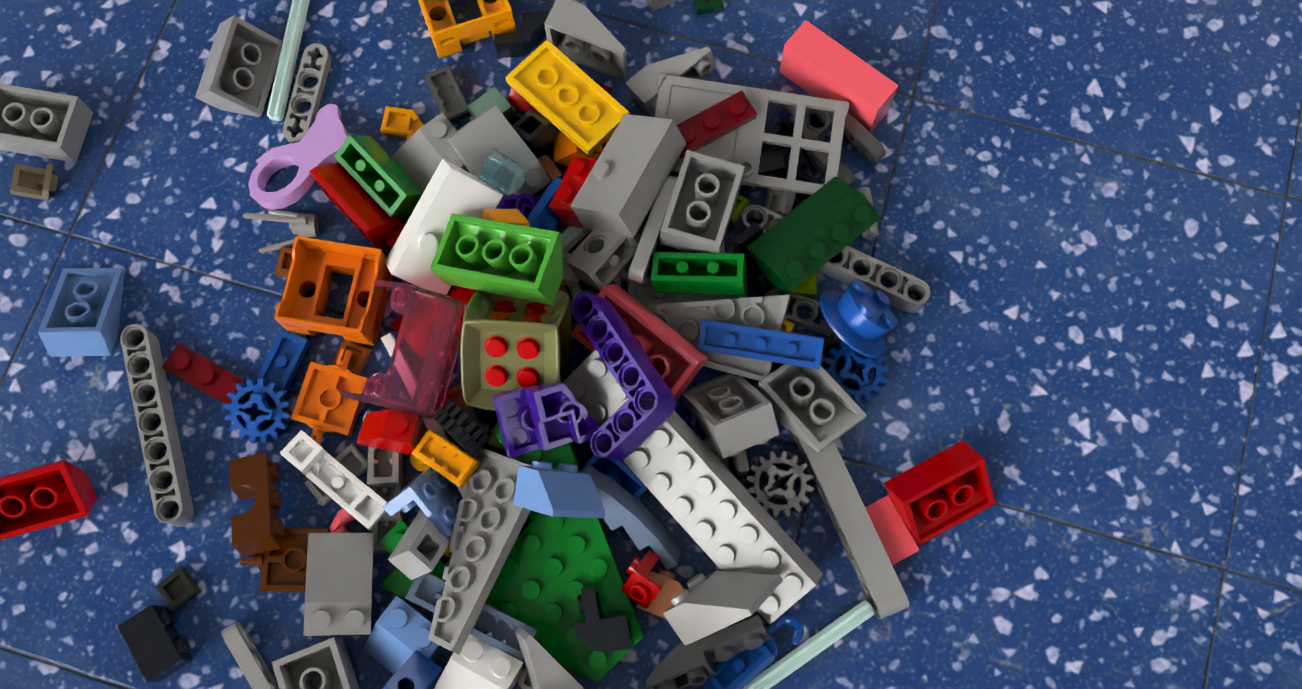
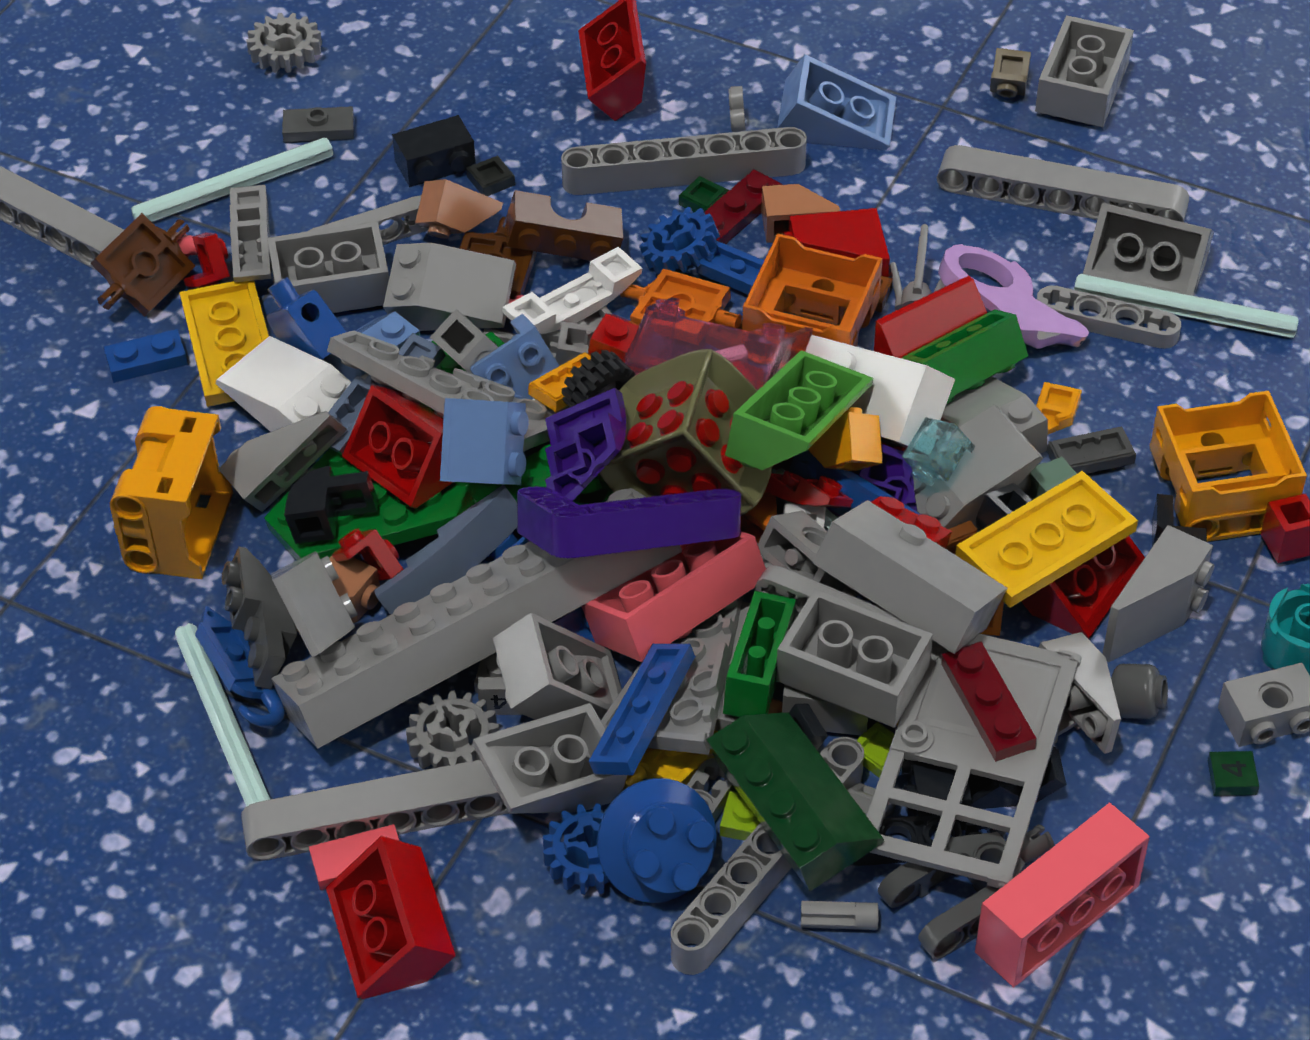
camera: 100 degrees right, 25 degrees down
(89, 391) = (736, 108): none -> light grey tile
(170, 136) = (1054, 185): none -> light grey beam
(194, 405) = (701, 194): none -> dark green tile
(215, 326) = (786, 201): none -> nougat slope
(238, 604) = (453, 208): none -> nougat slope
(249, 286) = (842, 233): none -> red slope
(539, 570) = (398, 445): none -> red slope
(658, 47) = (1139, 690): none -> dark grey head

